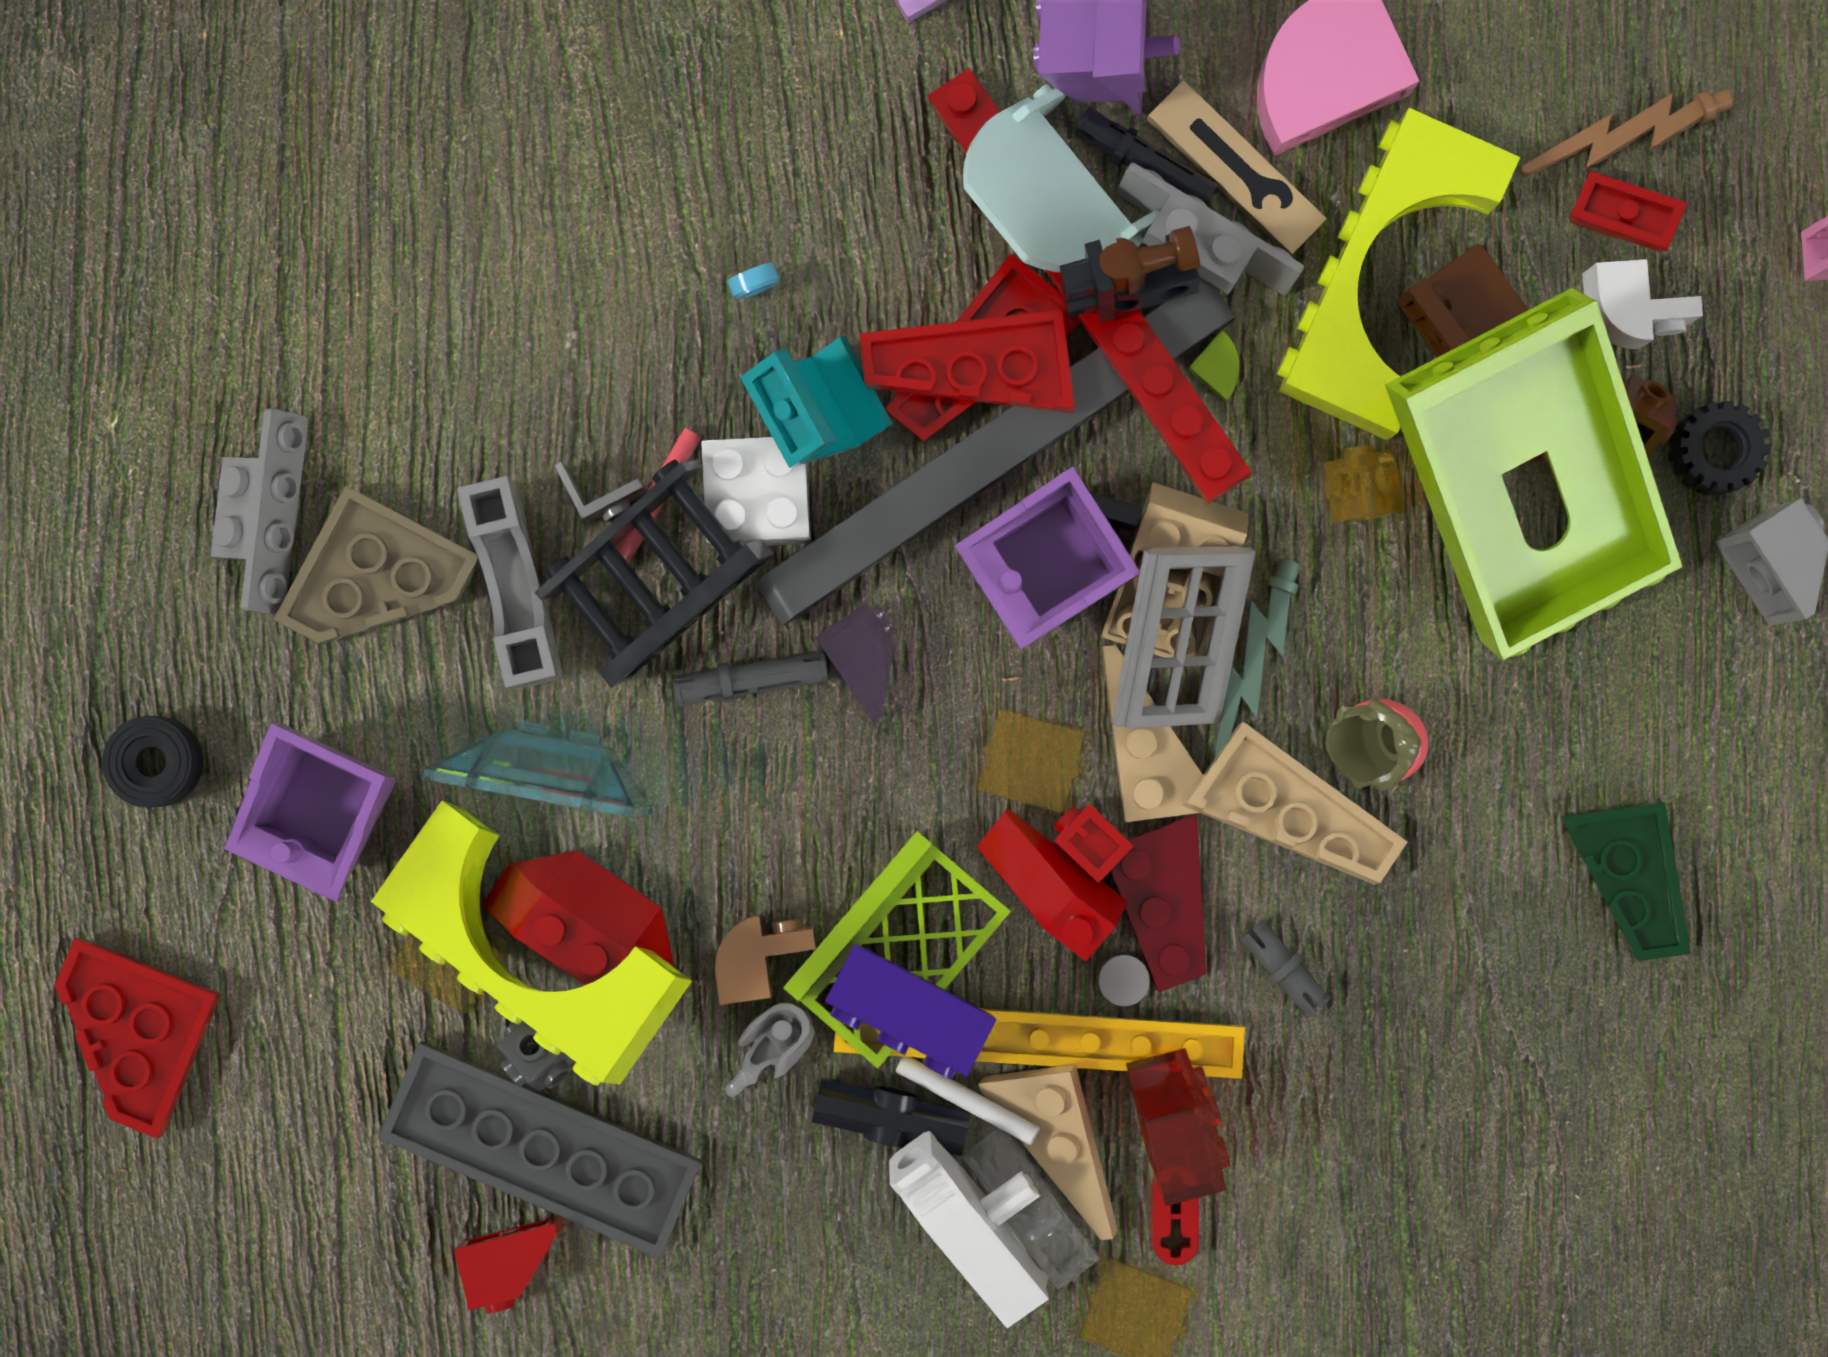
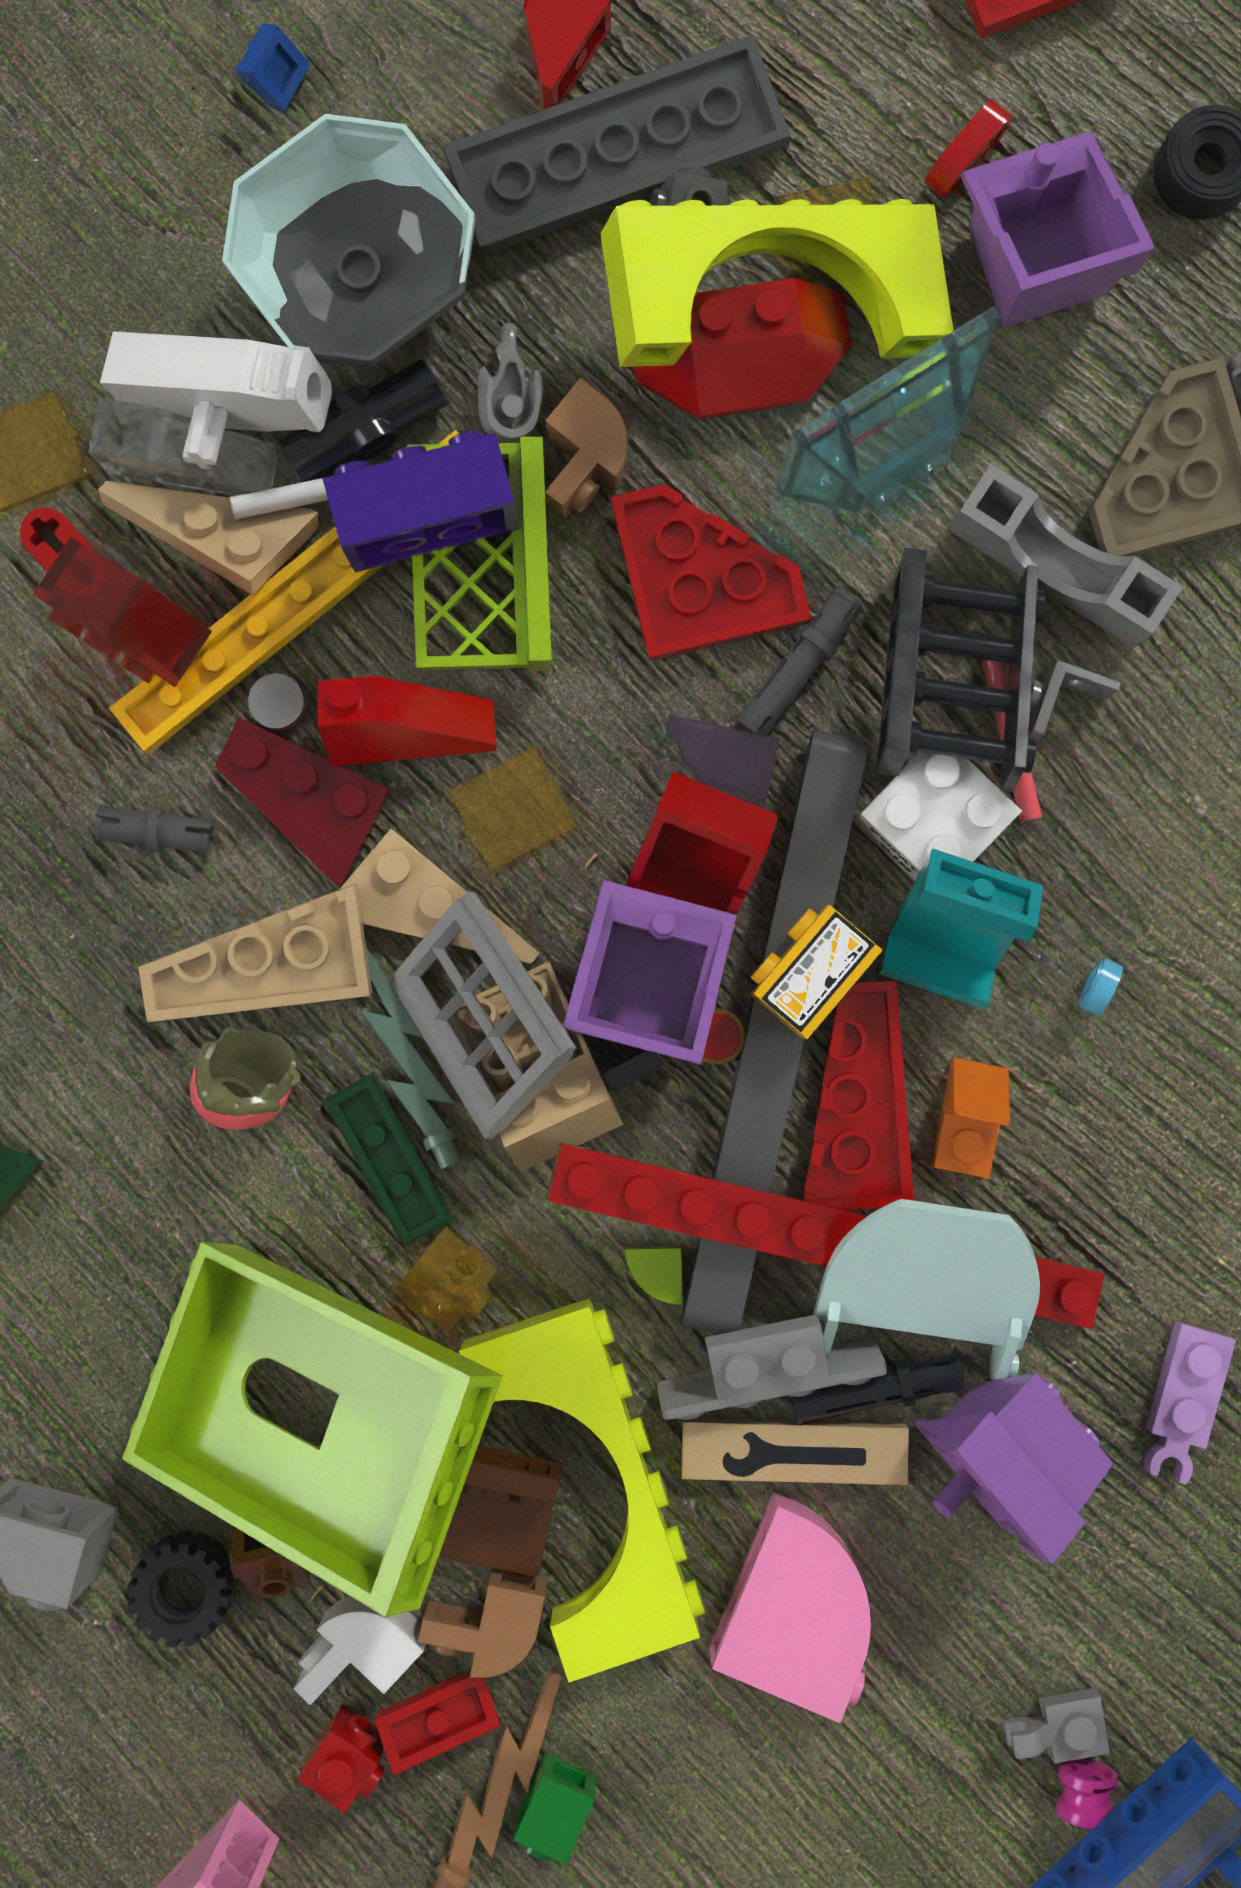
camera: 140 degrees right, 0 degrees up
(305, 921) = (969, 148): none -> red beam
(760, 799) = (700, 576): none -> red plate
(792, 1238) = (349, 239): none -> rock
(918, 275) = (971, 1117): none -> orange slope
(934, 612) = (702, 846): none -> red piece
(939, 462) = (814, 970): none -> brick
(985, 360) = (852, 1094): red wing -> none
(1031, 476) = (724, 1038): none -> red tile
(1091, 841) = (404, 783): red bracket -> none
(1131, 277) = (800, 1269): hips -> none
(1328, 604) = (389, 1159): none -> dark green tile
(1538, 229) = (498, 1634): none -> medium nougat brick
(1603, 86) = (554, 1809): none -> green brick
(1710, 242) = (344, 1760): none -> red brick

